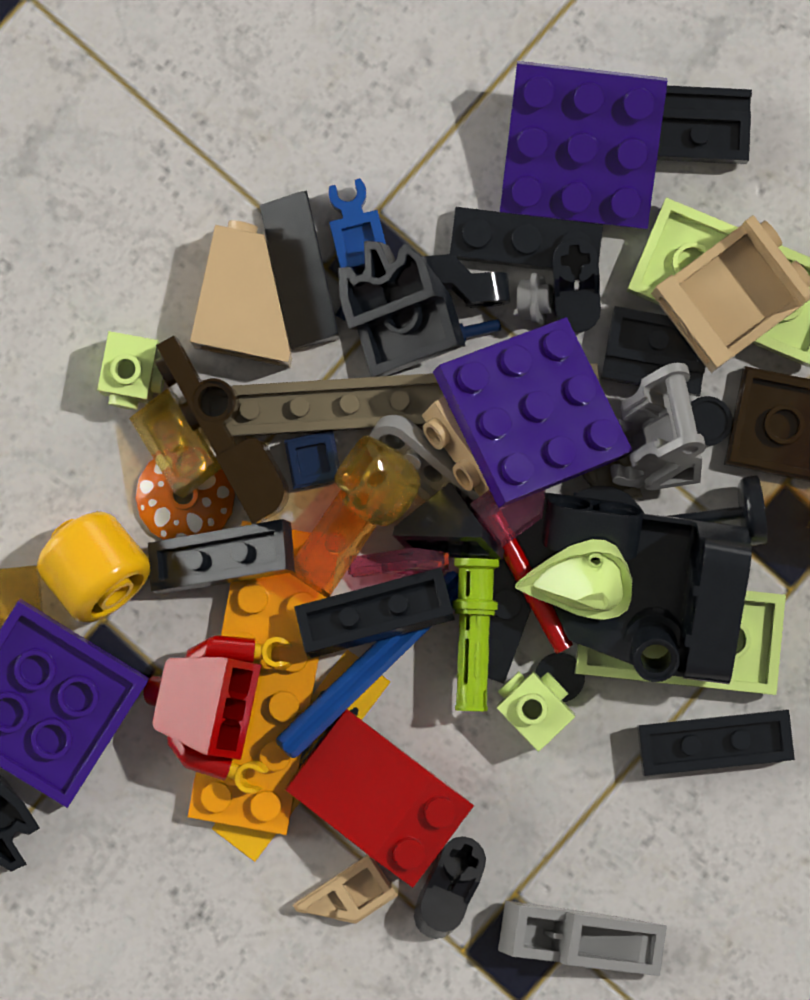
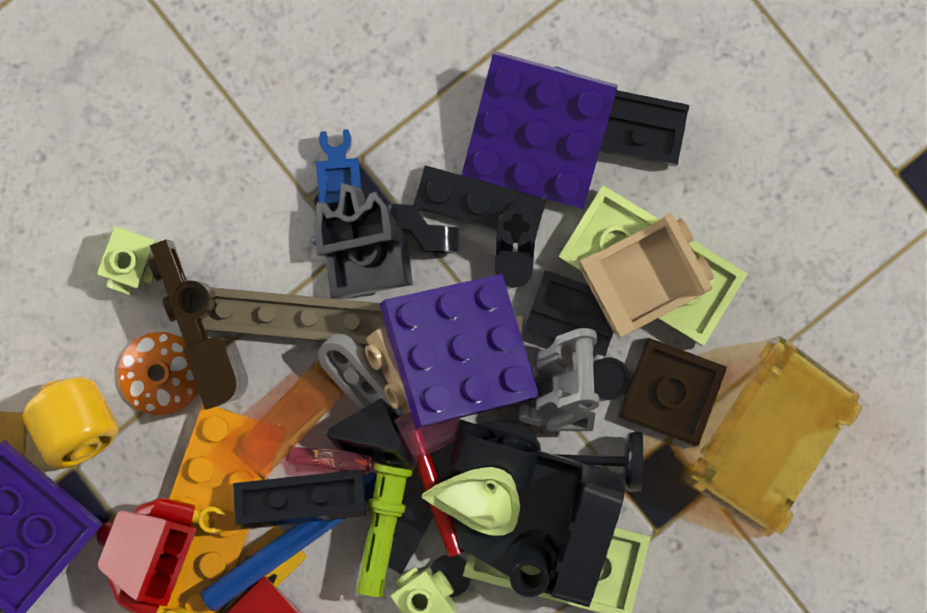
camera: 10 degrees right, 0 degrees up
(174, 446) = (155, 334): clear yellow plate -> none
(221, 557) = (179, 431): plate -> none
(240, 299) = (231, 215): tan slope -> none
(299, 270) = (285, 198): black slope -> none
(312, 460) = (271, 360): dark blue tile -> none
(377, 482) = (321, 389): clear yellow helmet -> none
(480, 328) = (427, 271): dark blue piece -> none
(535, 299) = (479, 253): light grey plate -> none

